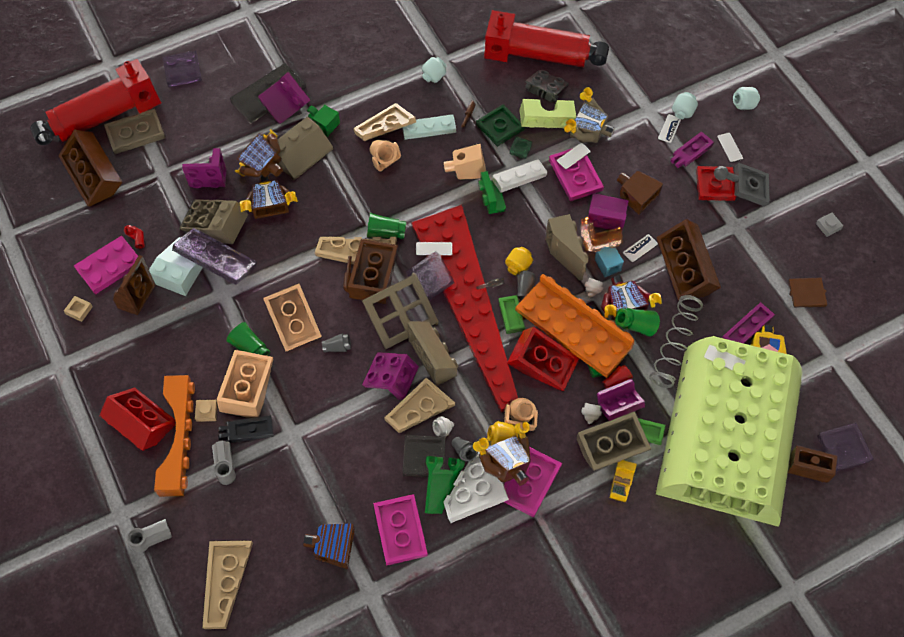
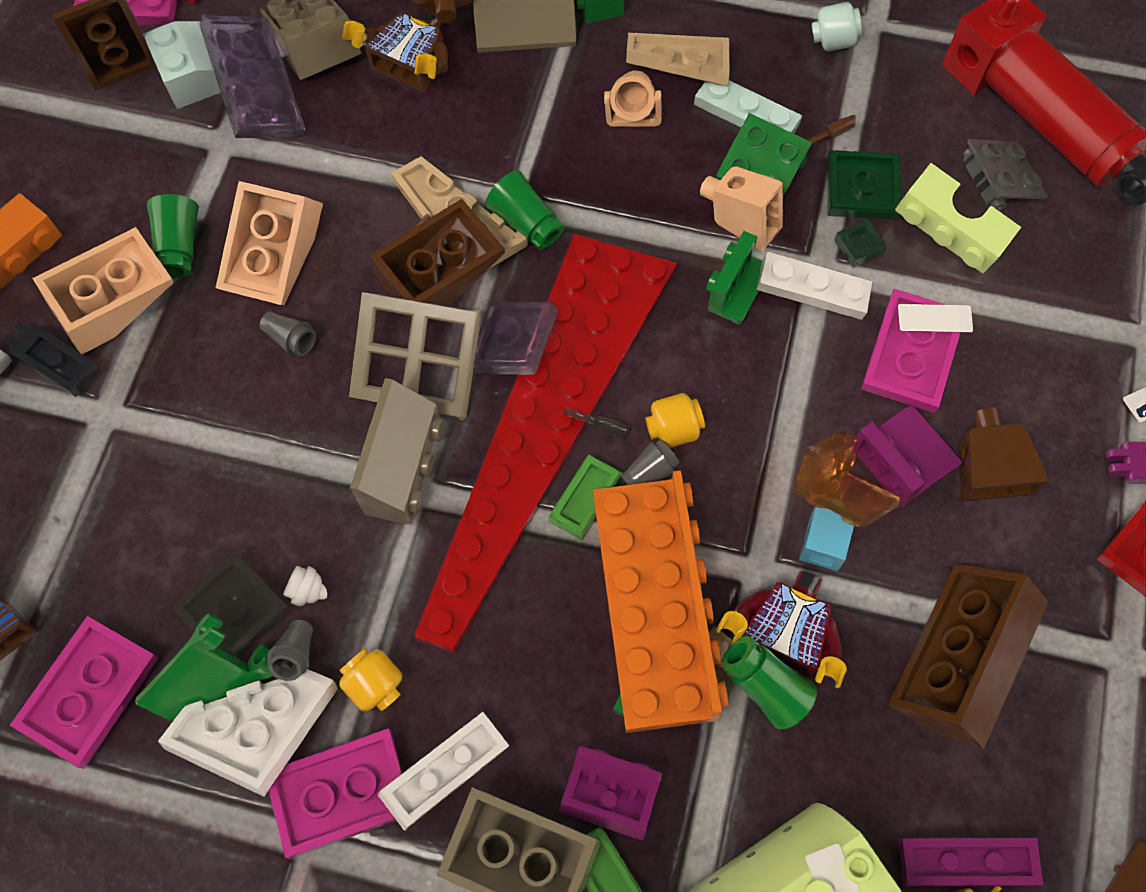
camera: 45 degrees right, 5 degrees up
(78, 308) = (31, 24): tan plate -> none
(206, 410) = (26, 289): tan plate -> none
(392, 373) = (313, 443): magenta bracket -> none
(419, 406) = (303, 524): tan wing -> none
(428, 248) = (565, 298): white sticker -> none
(453, 138) = (766, 151): none -> green hinge
(506, 458) = (320, 727): torso -> none
(521, 411) = (436, 670): light nougat piece -> none
(543, 359) = (557, 614): red slope -> none
(559, 440) = (443, 770): none -> white plate
(566, 245) = (775, 450): dark tan slope -> none
(590, 121) = (1017, 283): torso -> none
(591, 412) = (548, 767): white plate -> none
(593, 287) = (759, 560): white plate -> none
(618, 376) = (650, 748): red cone -> none
(640, 248) = (909, 560): white sticker -> none
(667, 376) = (723, 830): light grey piece -> none

